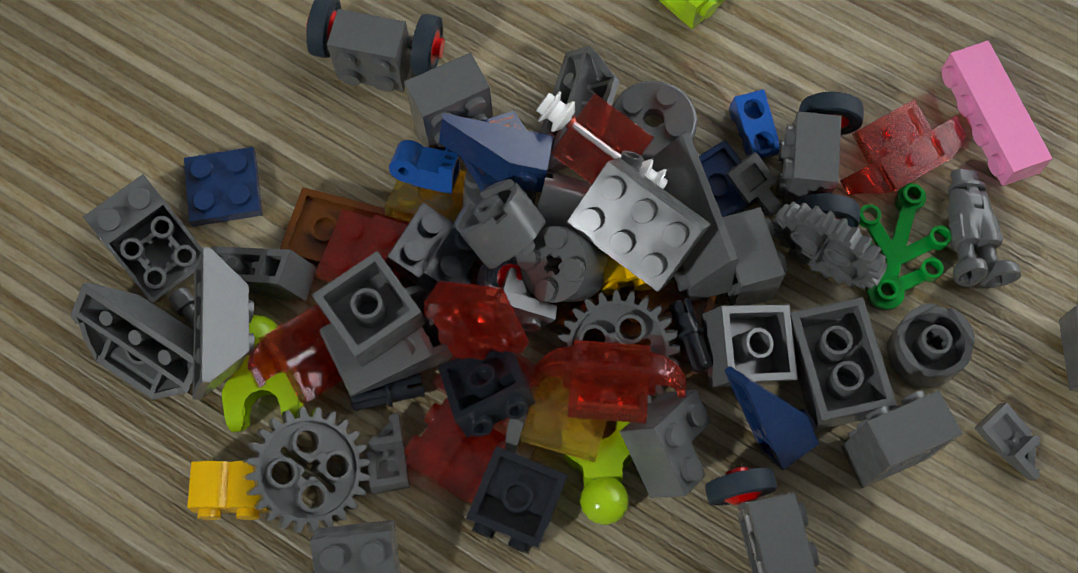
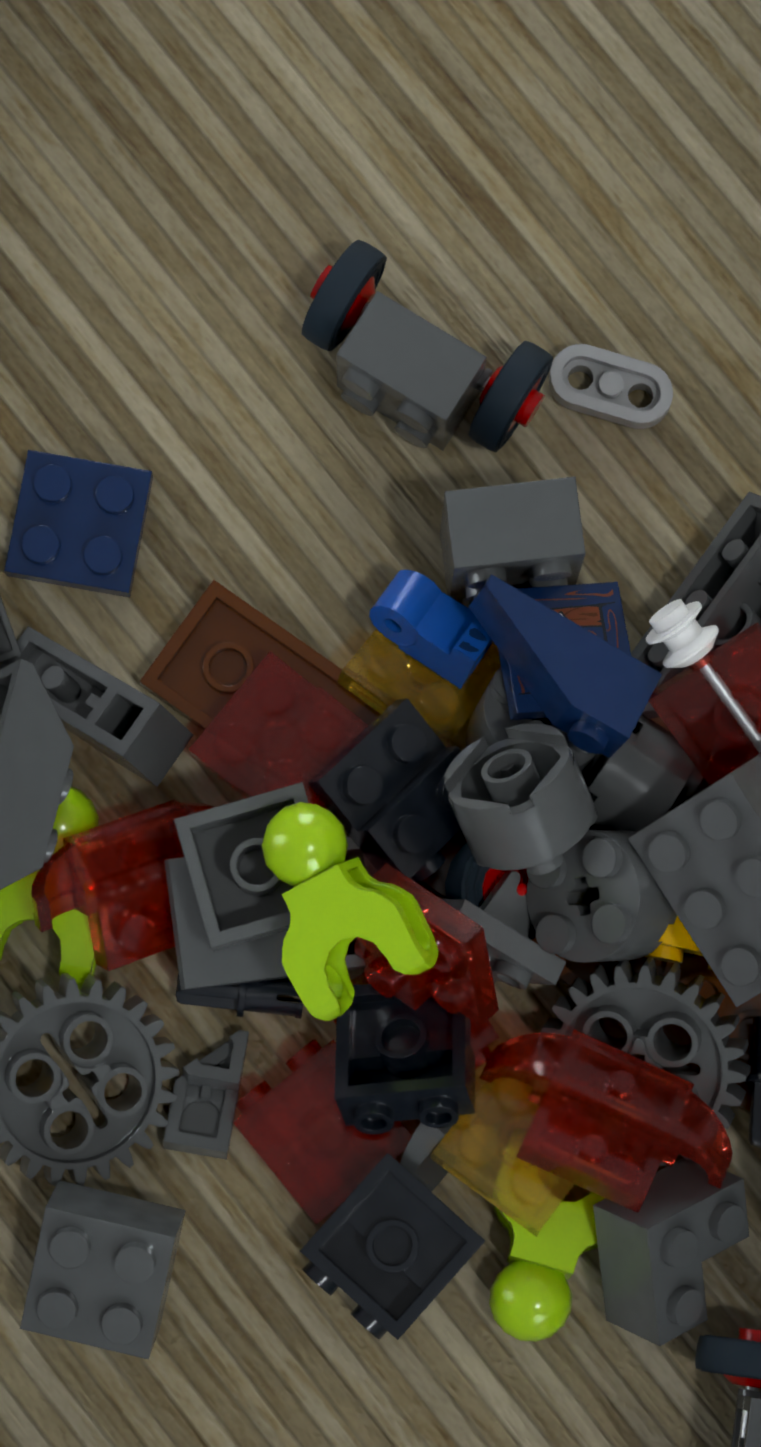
camera: 15 degrees right, 10 degrees up
(416, 306) = (333, 906): none -> lime piece
(477, 30) = (612, 381): none -> light grey plate

